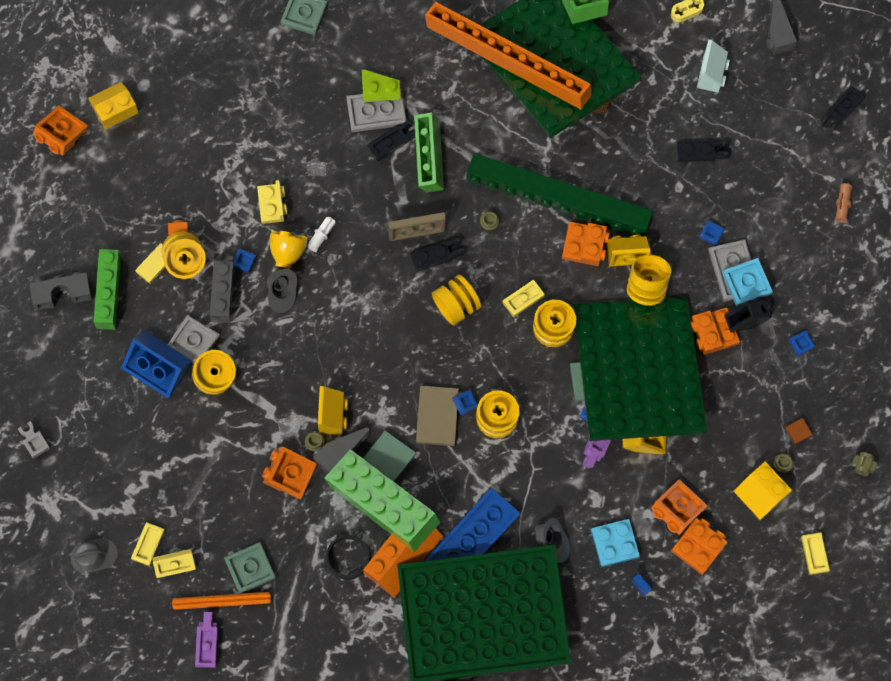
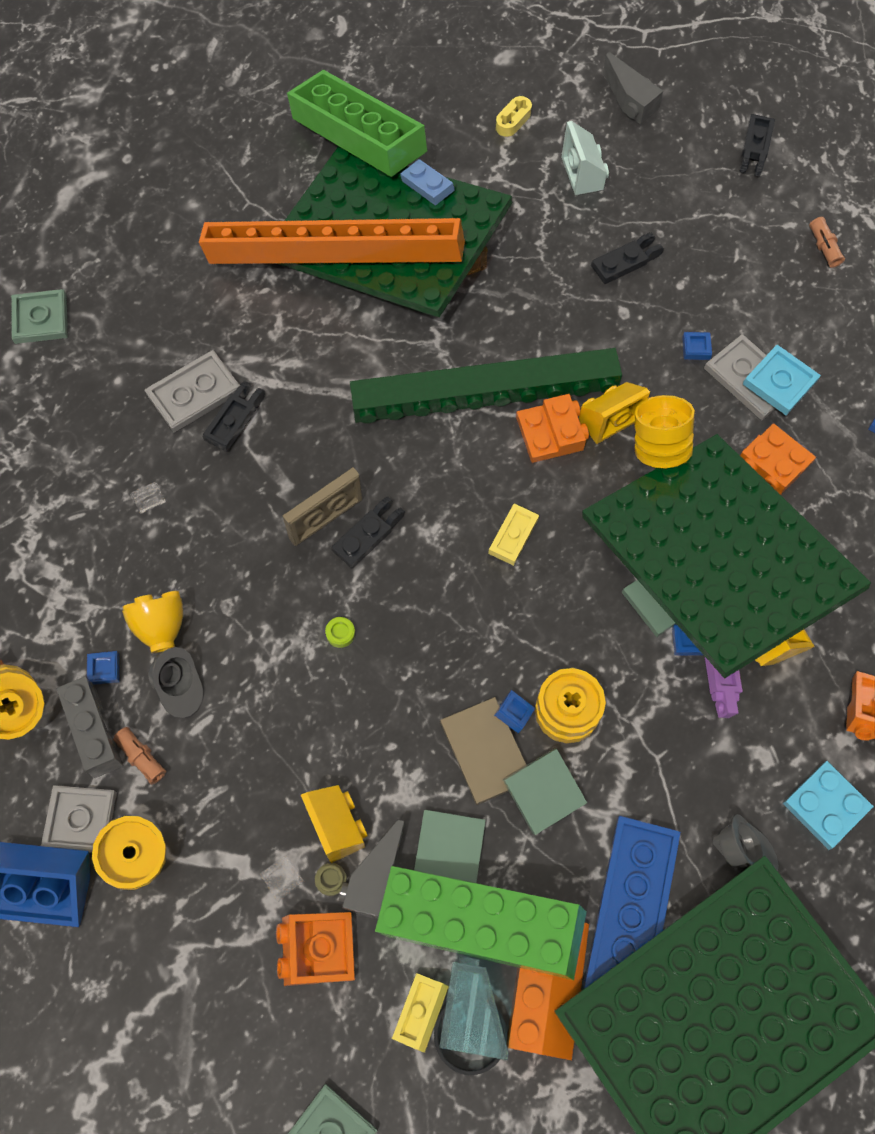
camera: 25 degrees left, 5 degrees down
(242, 321) = (139, 755): none -> nougat pin
(271, 203) = (106, 572): light yellow bracket -> none
(321, 234) = (196, 580): white axle -> none
(327, 532) = (420, 1012): none -> light yellow plate
(352, 543) = (471, 1013): none -> clear light blue slope
(379, 87) = (183, 359): lime wing -> none
(389, 306) = (340, 632): none -> lime tile
(429, 152) = (290, 408): bright green brick -> none
(457, 454) = (544, 791): none -> sand green tile
(458, 298) = (429, 577): yellow wheel -> none
(489, 221) = (414, 458): olive plate -> none
(554, 334) = (574, 545): yellow wheel -> none
(593, 39) = (427, 182): none -> medium blue plate
(755, 311) = (814, 415): black torso -> none

